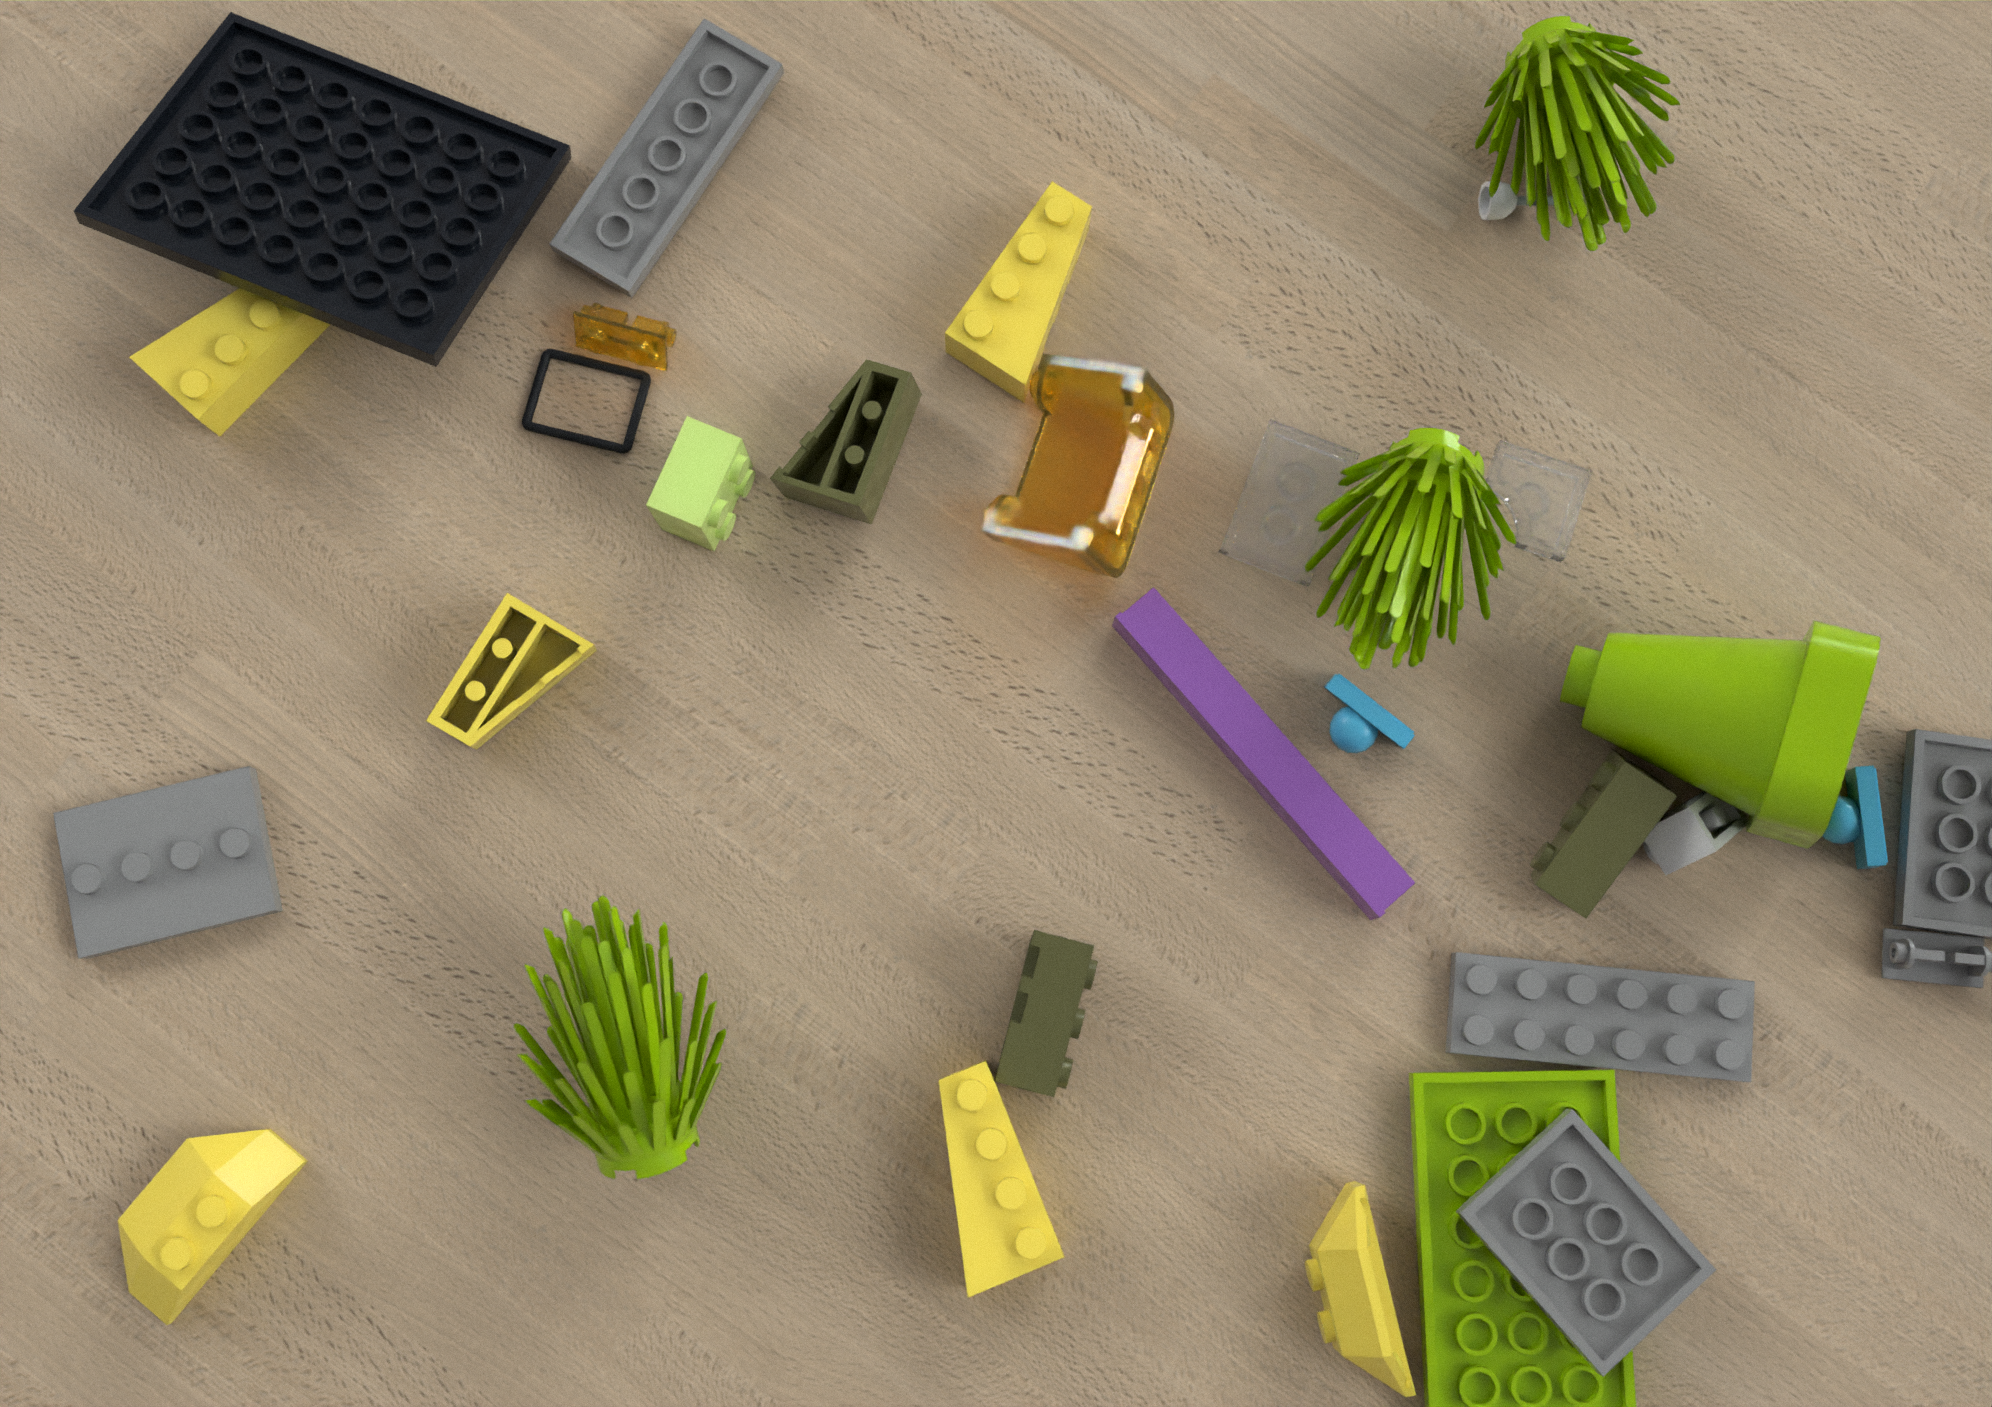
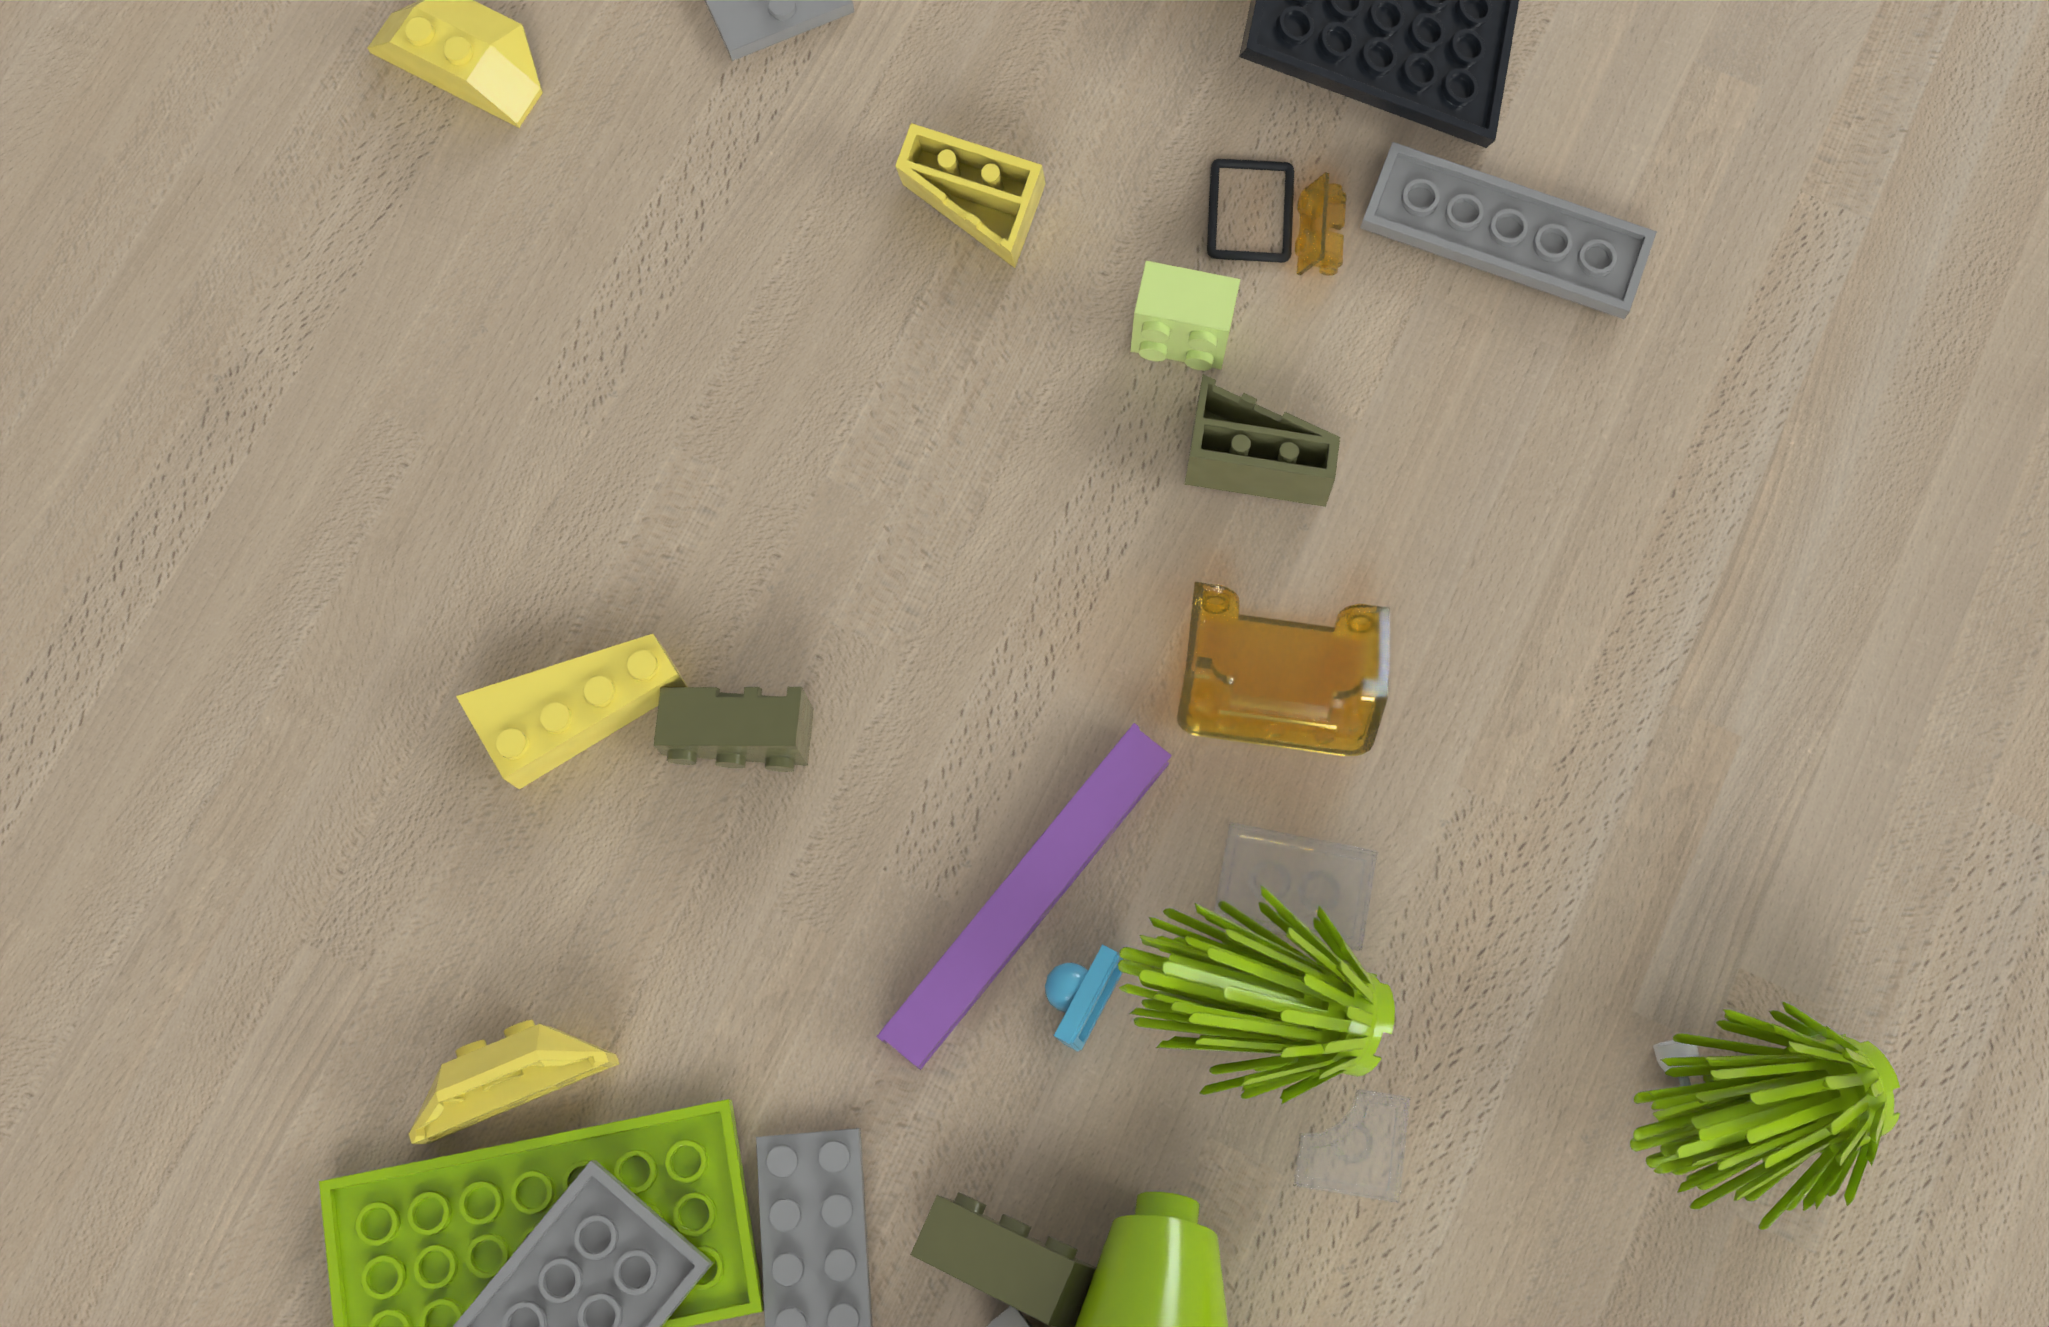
camera: 85 degrees right, 5 degrees down
(629, 1074) = (639, 343): lime plant -> none
(1017, 302) = (1453, 581): light yellow wedge -> none

